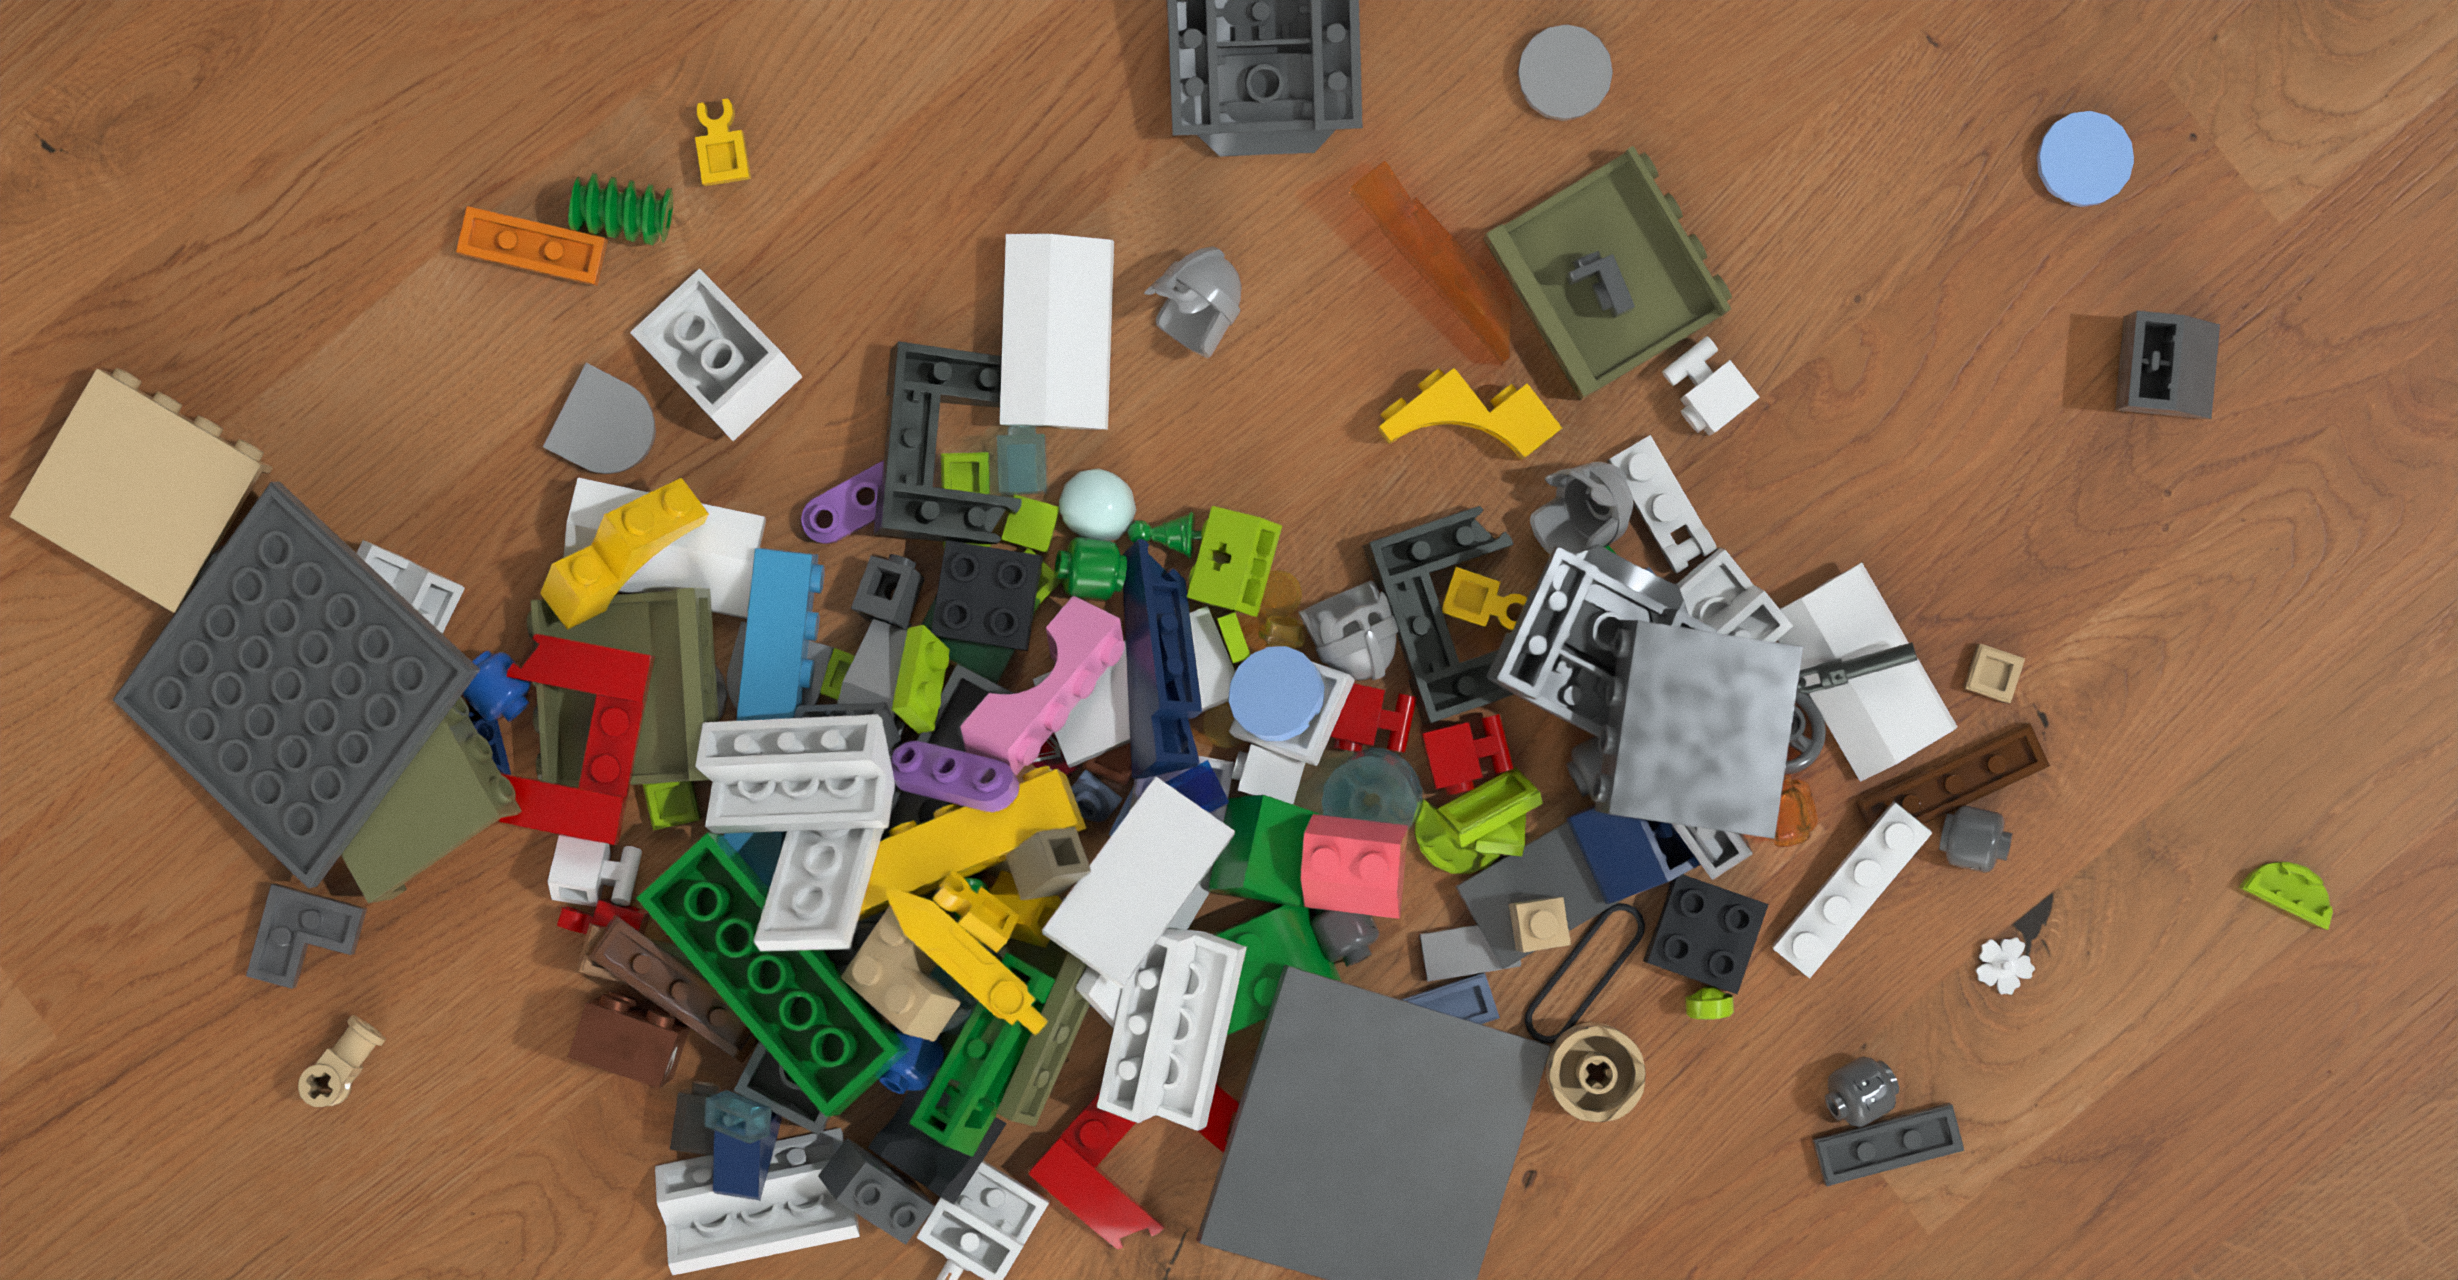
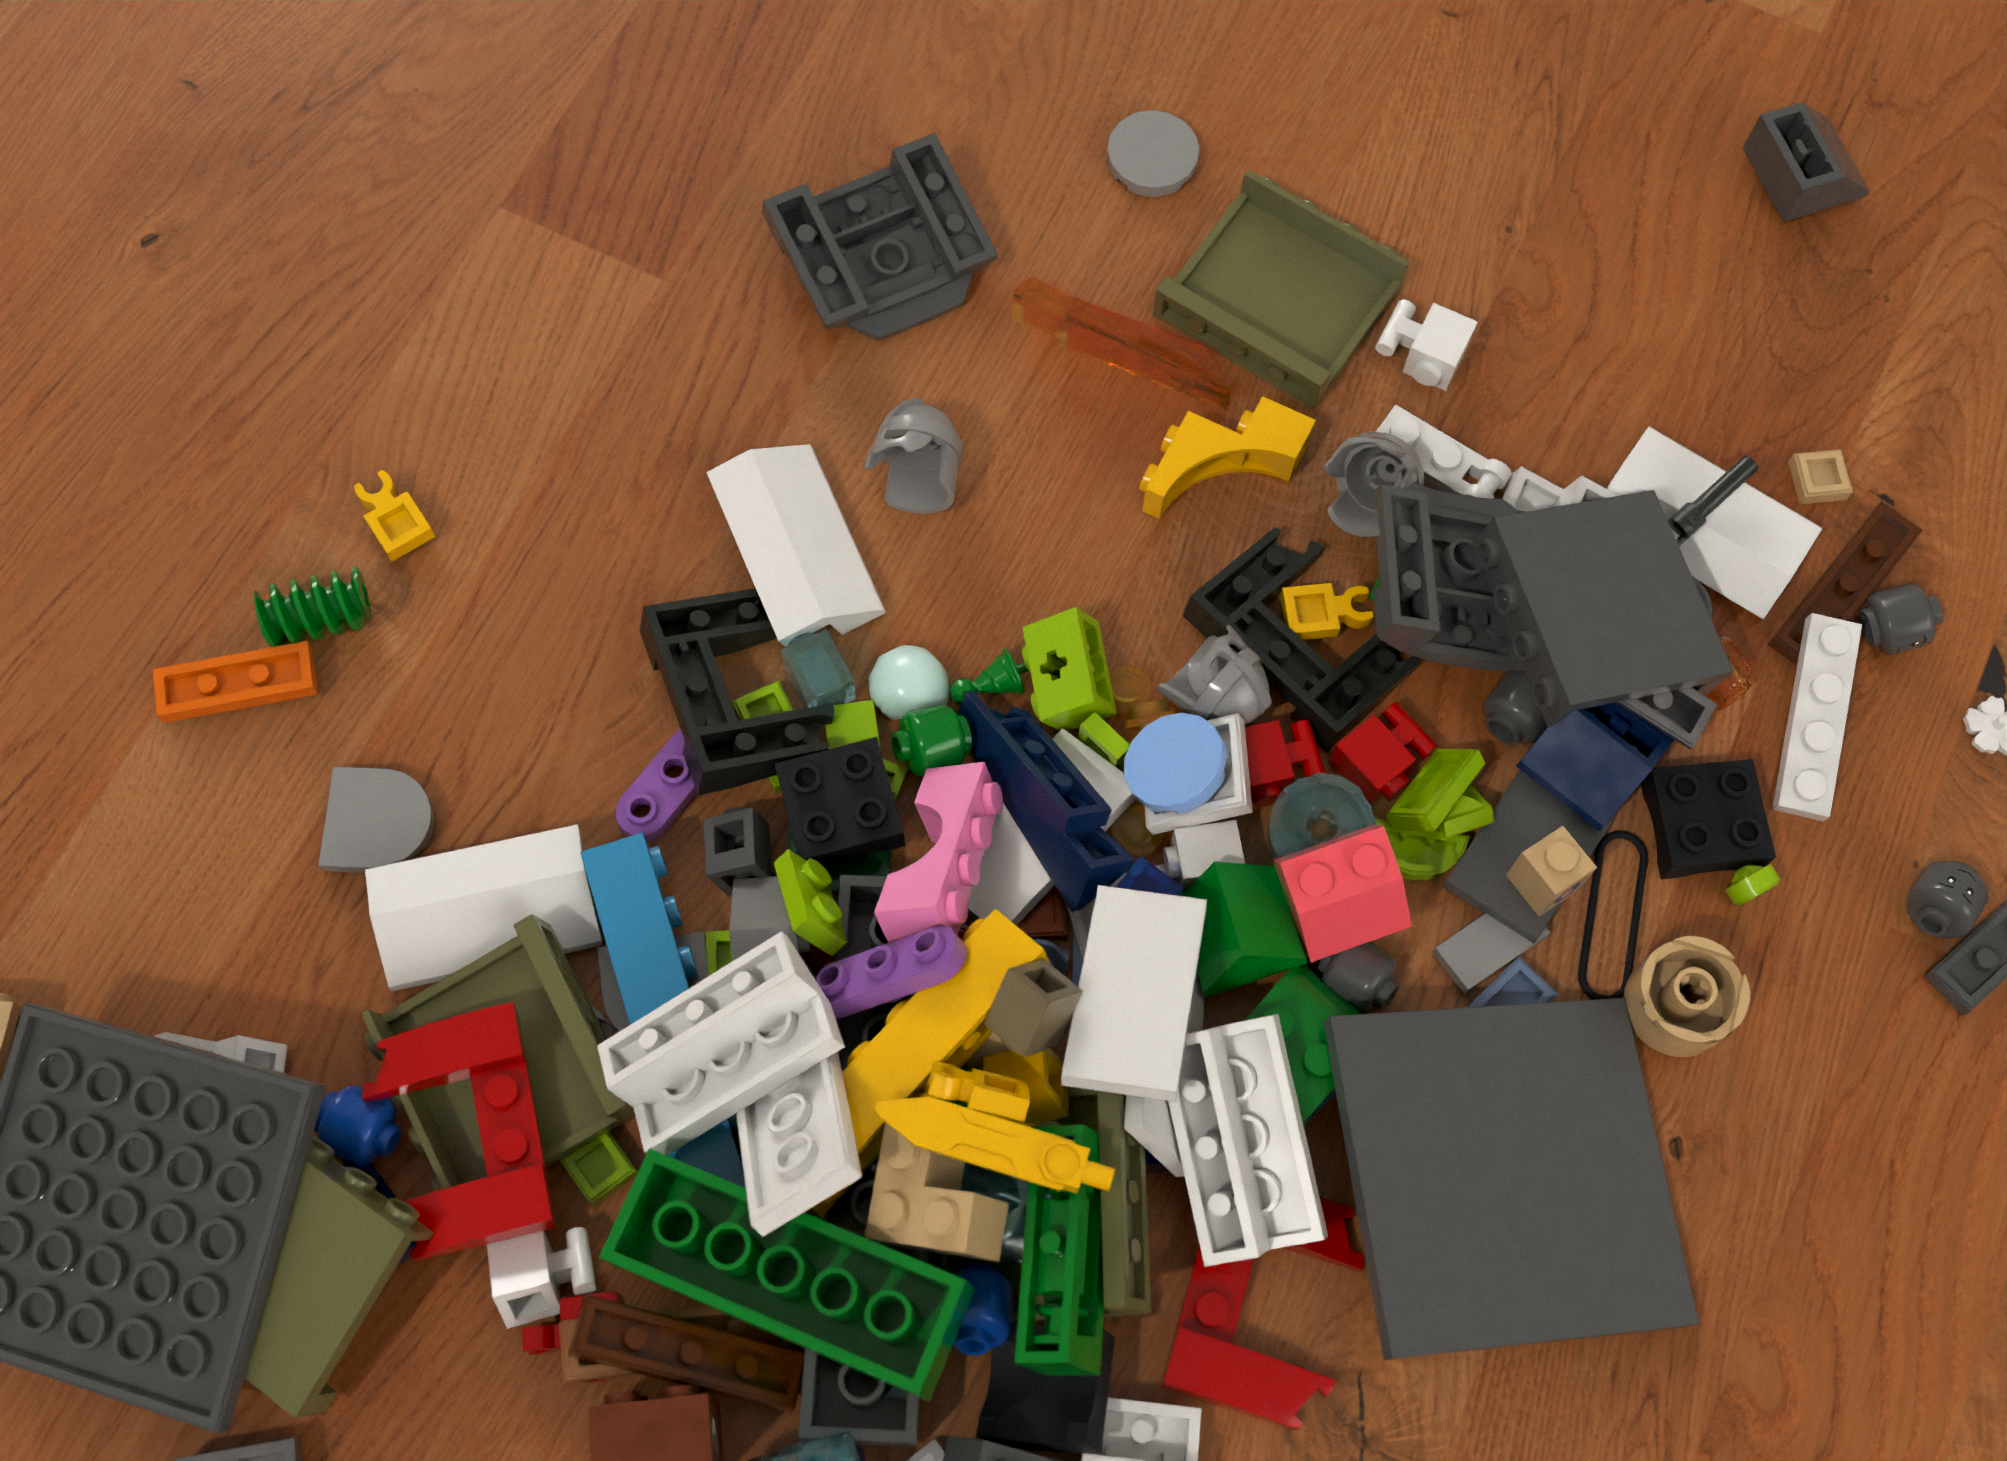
camera: 30 degrees left, 20 degrees down
(624, 542) = (440, 890): yellow arch -> none
(716, 354) = (467, 702): white slope -> none
(1611, 288) = (1289, 290): dark grey bracket -> none
(2085, 158) = (1633, 44): light blue tile -> none

